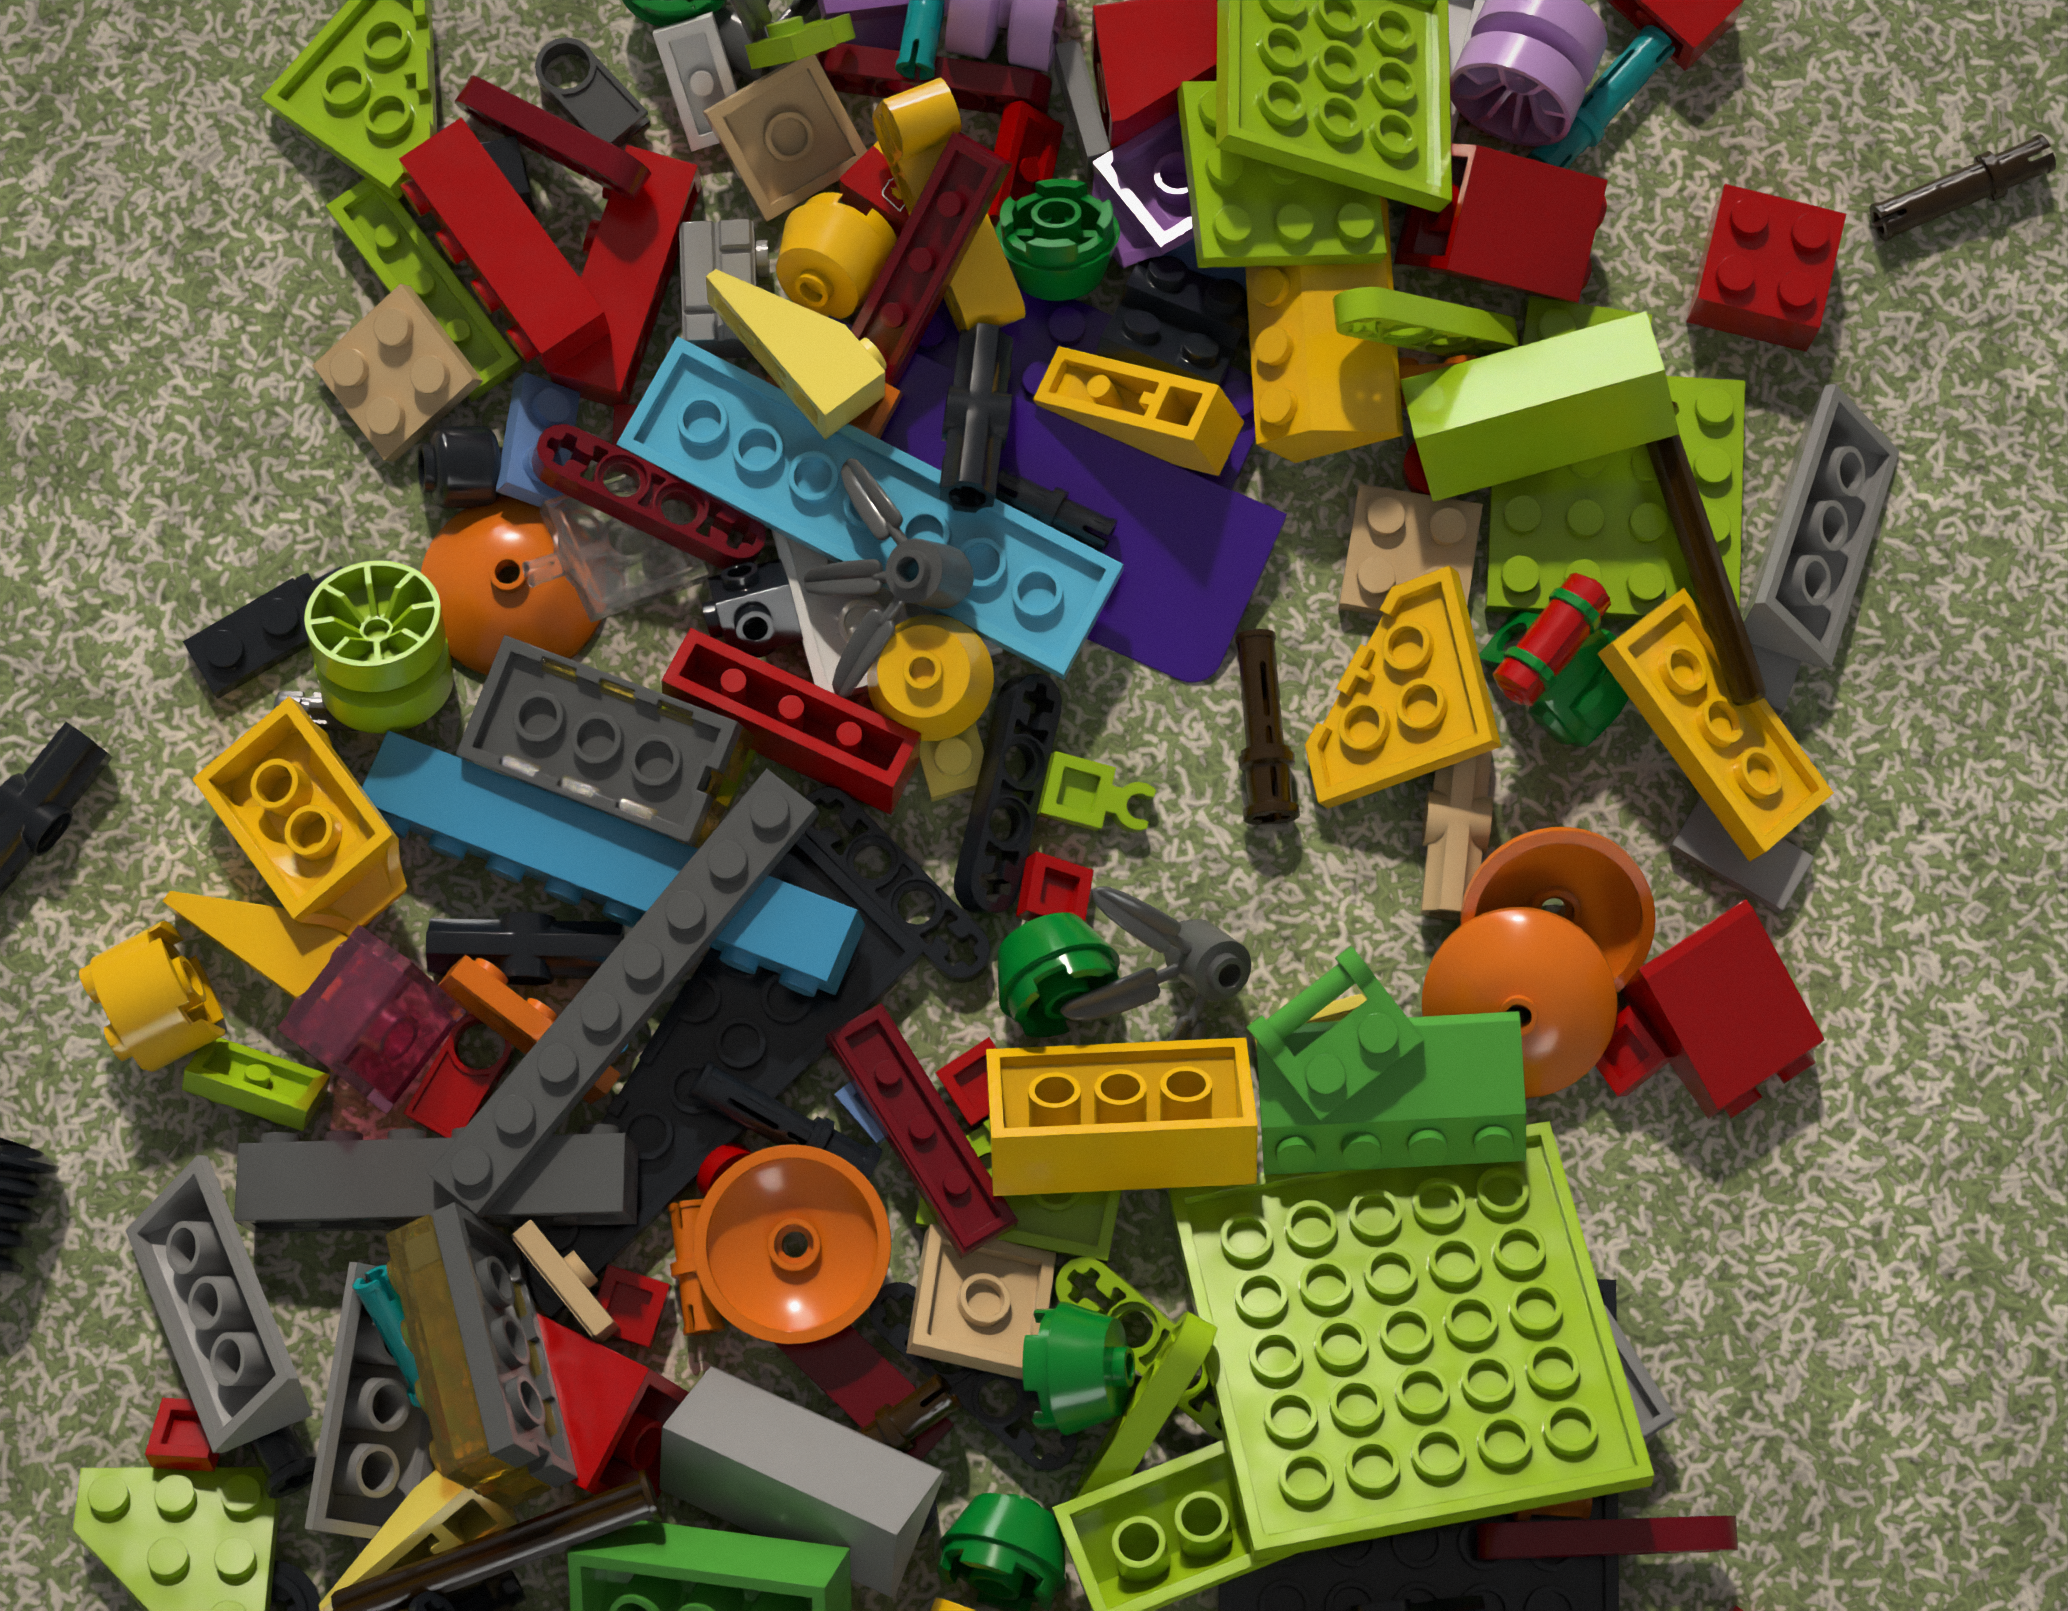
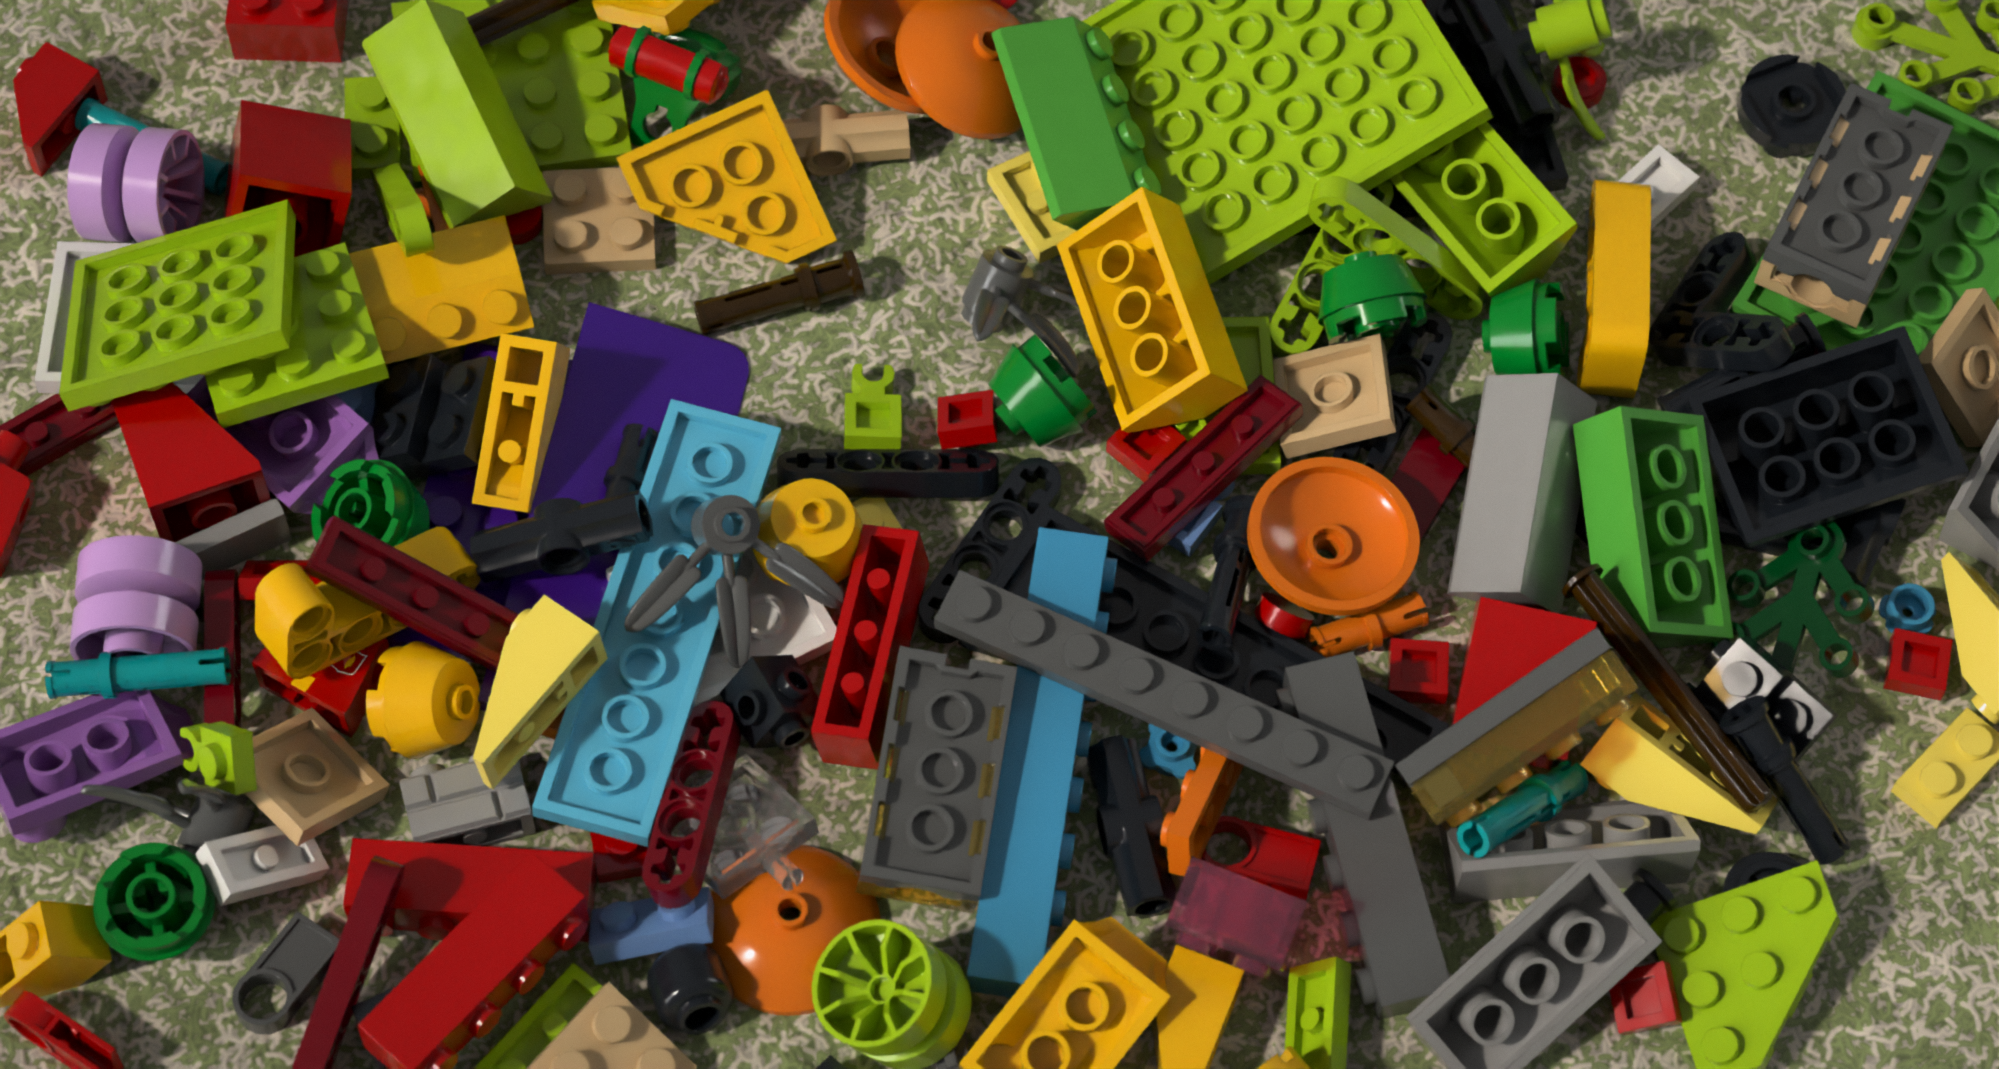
camera: 105 degrees left, 15 degrees down
(568, 1278) = (1419, 701): tan plate -> none
(1349, 1051) = (1058, 139): bright green plate -> none

